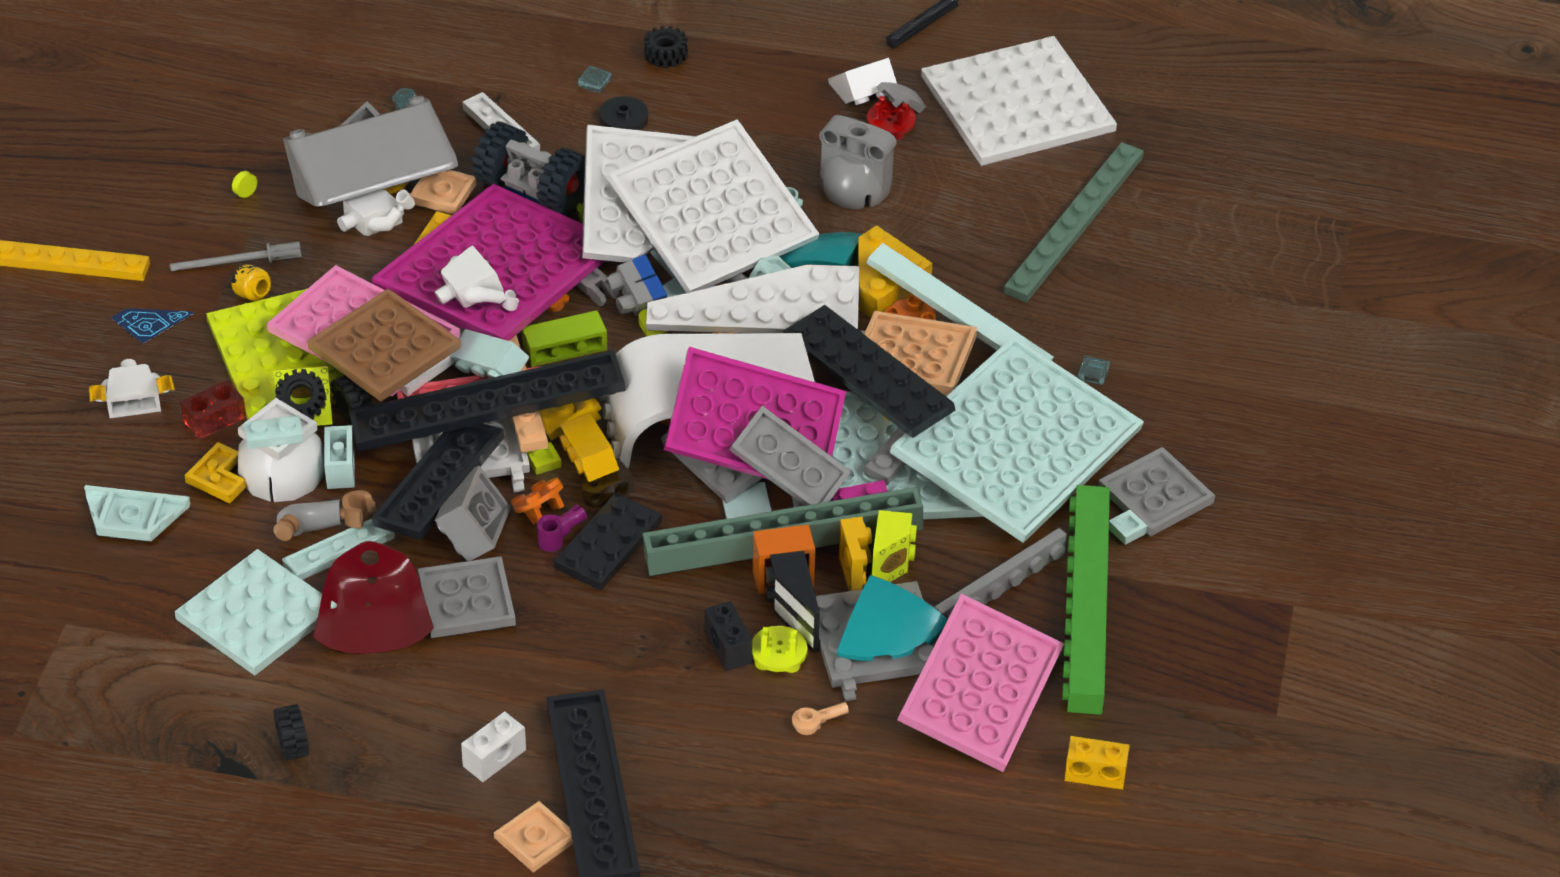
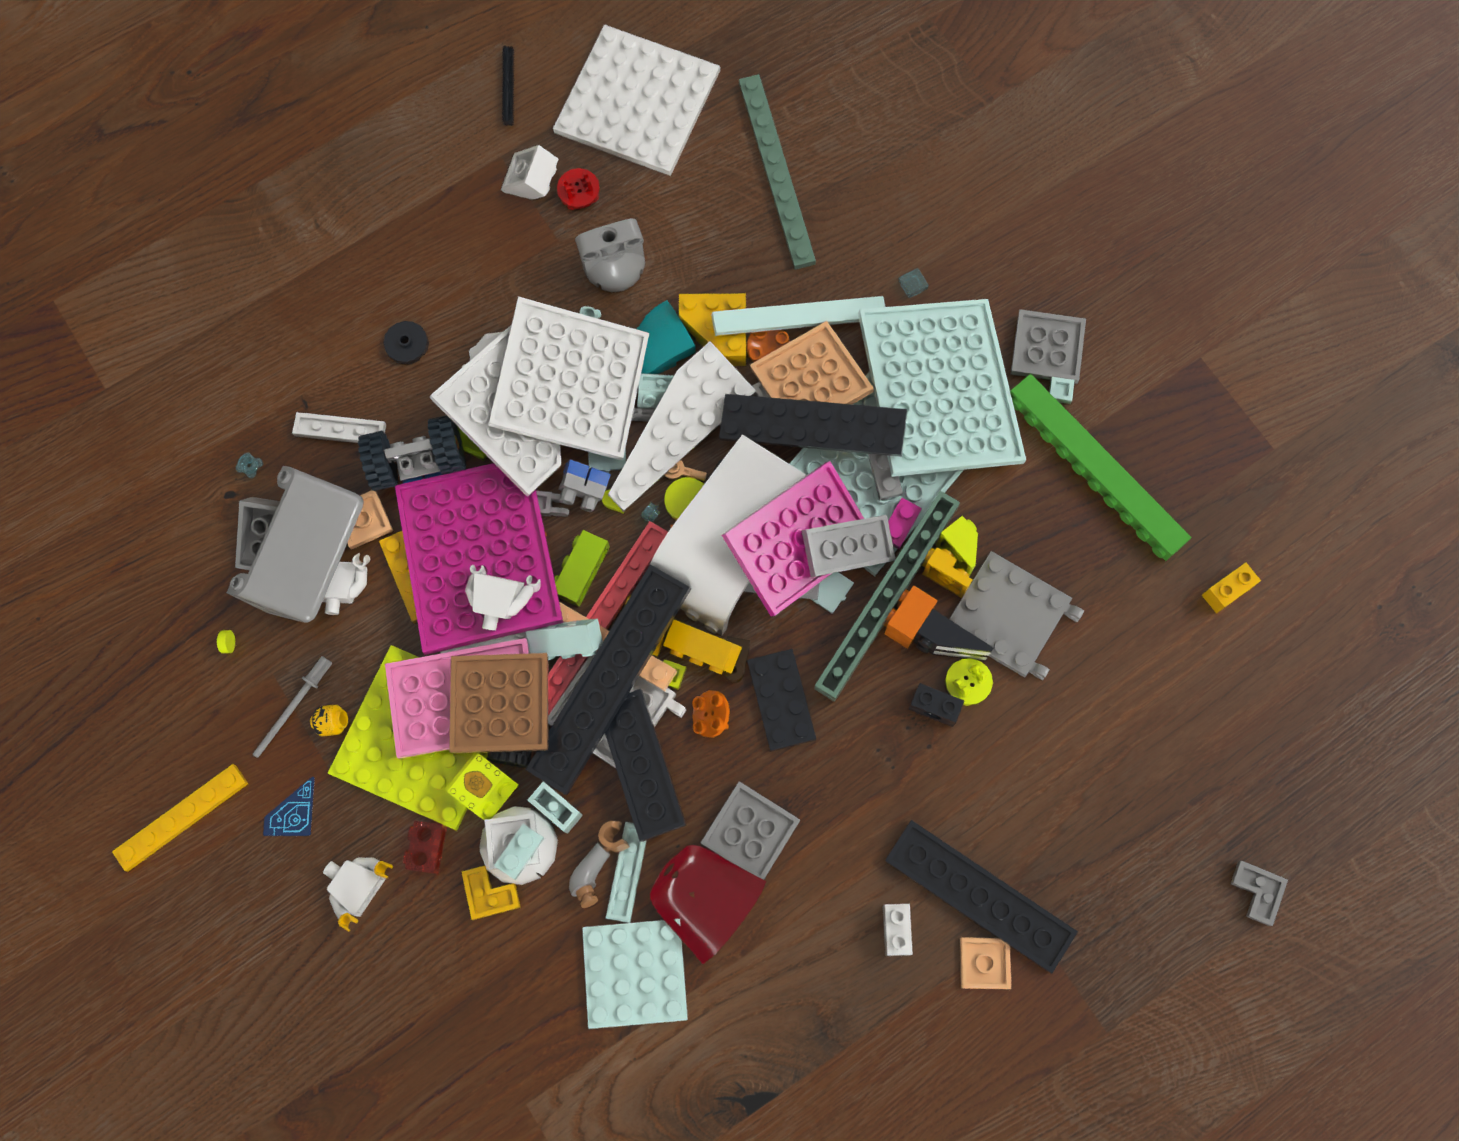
camera: 40 degrees left, 30 degrees up
(132, 512) = (469, 981): light aqua wing -> none
(291, 732) = (774, 1050): black tyre -> none
(305, 380) = (480, 785): black tyre -> none
(473, 515) = (694, 771): light grey slope -> none
(554, 527) = (745, 719): magenta pin -> none
(594, 79) = (352, 328): clear light blue tile -> none
(665, 47) = (368, 247): black tyre -> none
(809, 720) = (1042, 718): light nougat plate -> none
(888, 623) = (1022, 607): teal brick -> none
(899, 93) = (570, 164): light grey slope -> none
(981, 682) = (1113, 595): bright pink plate -> none
(1010, 572) = (1038, 494): light grey plate -> none

